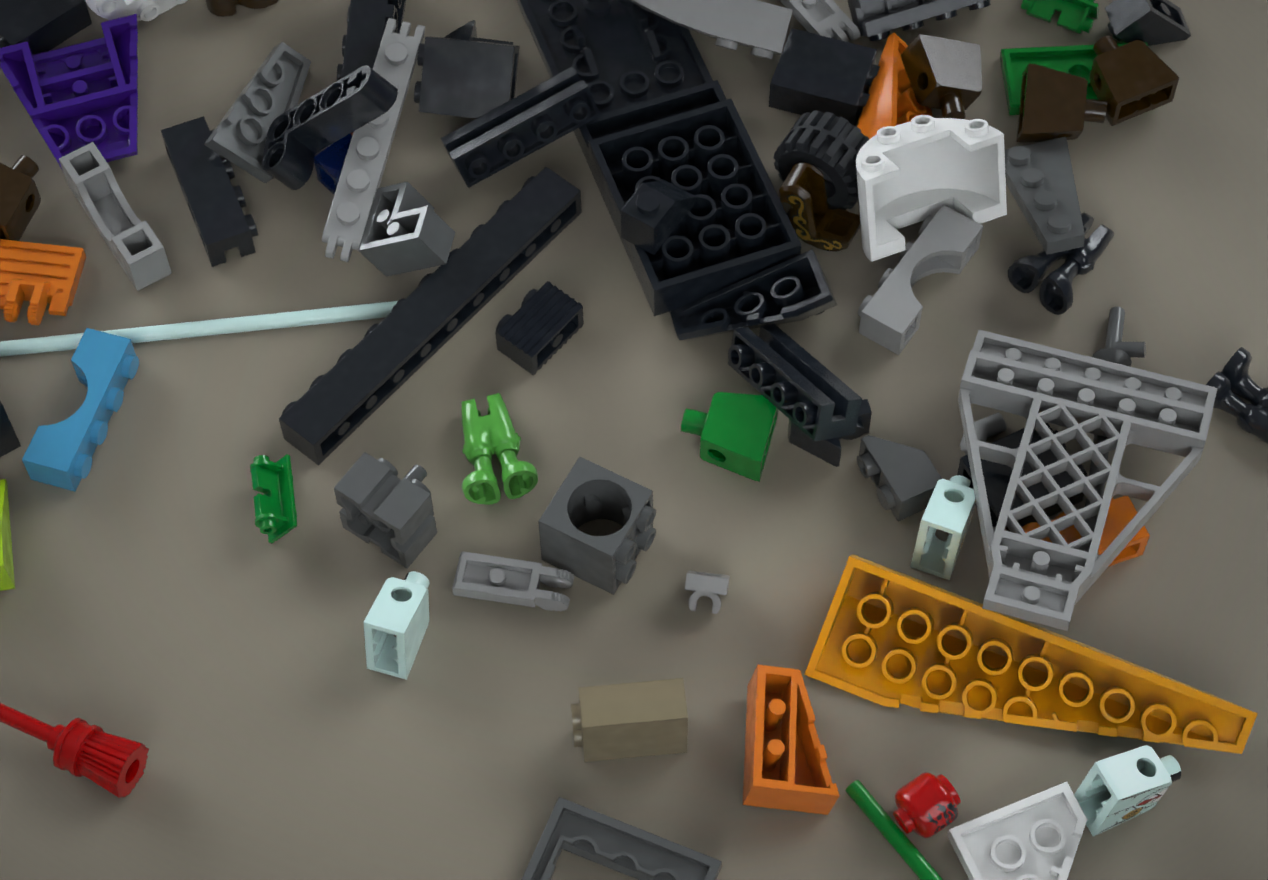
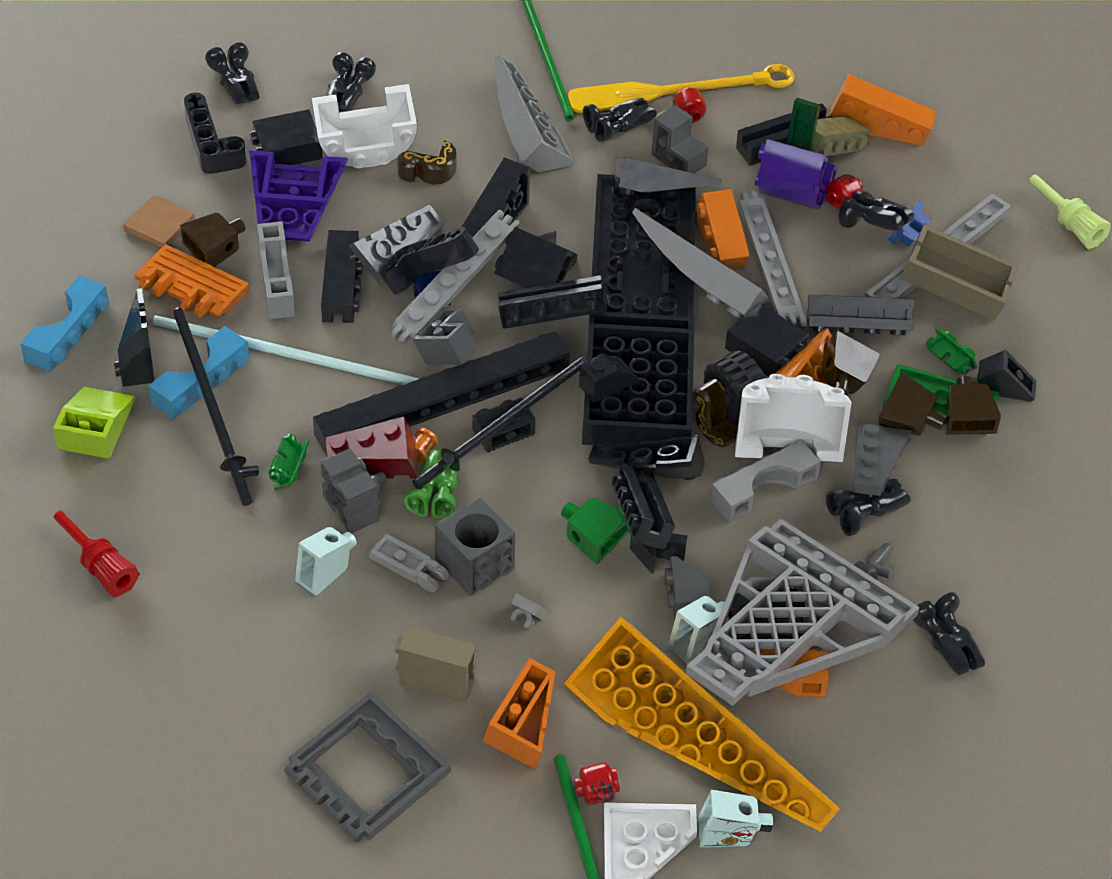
camera: 20 degrees right, 10 degrees down
(193, 525) = (232, 461): none -> black piece
(400, 427) = (381, 446): none -> wedge
(443, 402) = (423, 445): none -> orange bush
(503, 408) = (451, 458): none -> black piece

